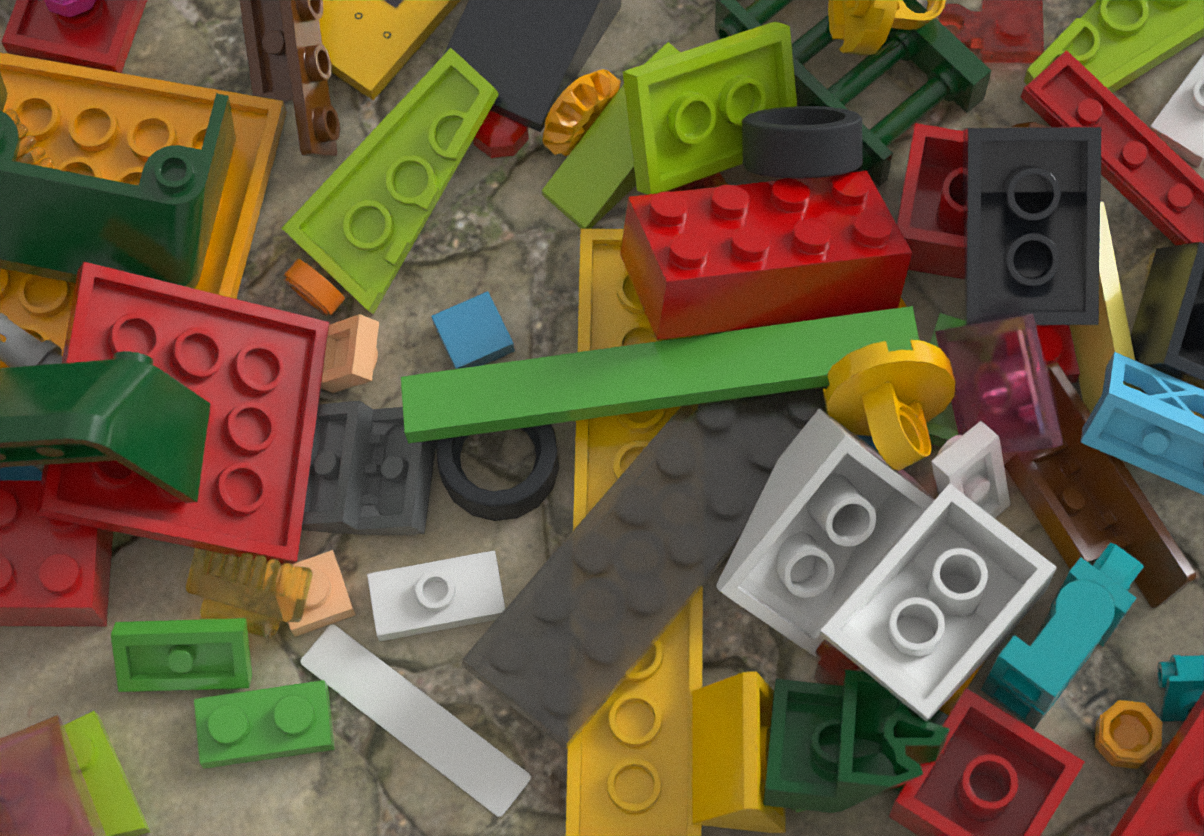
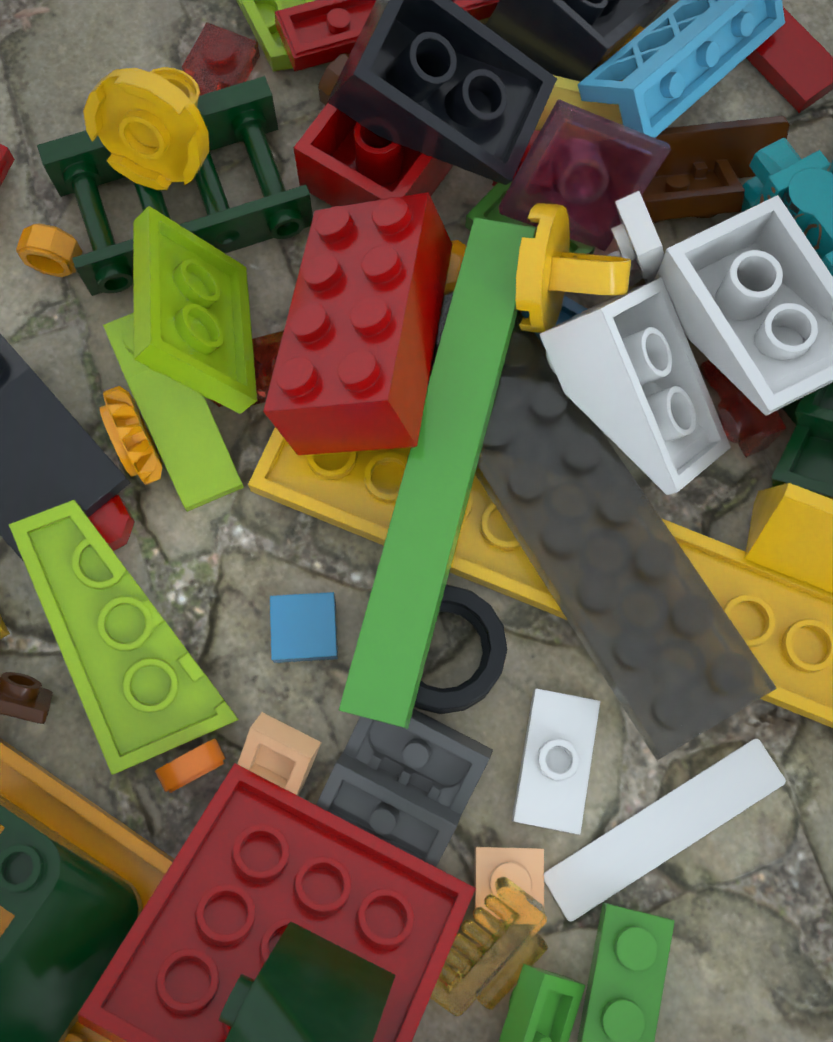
camera: 75 degrees left, 5 degrees up
(802, 142) = (267, 246): black tyre -> none

